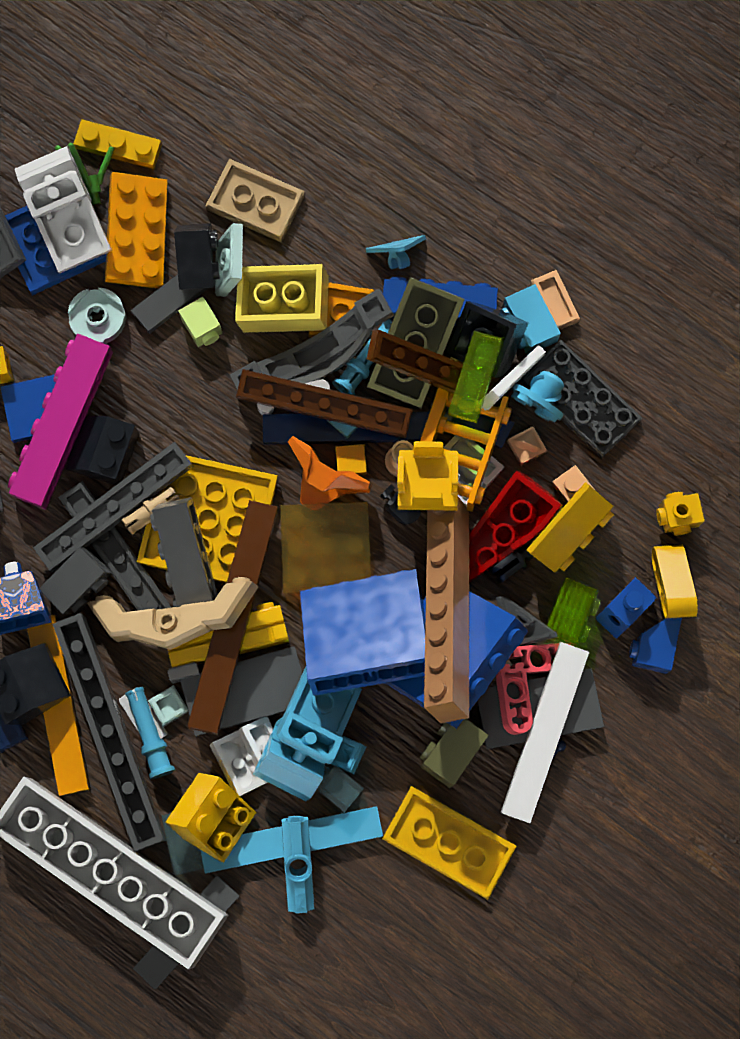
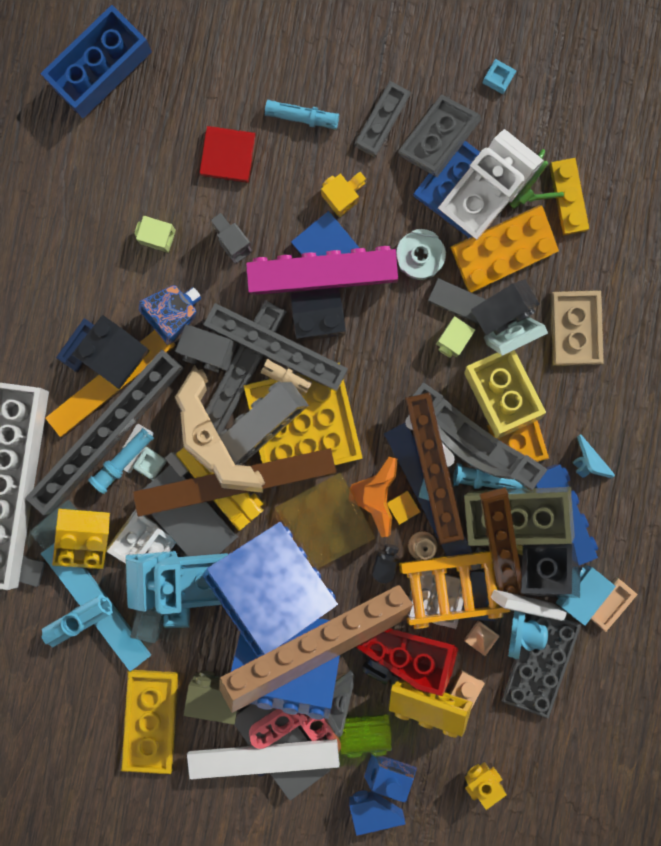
camera: 70 degrees right, 10 degrees up
(427, 477) = (412, 582): yellow panel -> none
(475, 377) = (512, 580): clear neon green plate -> none
(674, 581) = (427, 806): yellow beam -> none

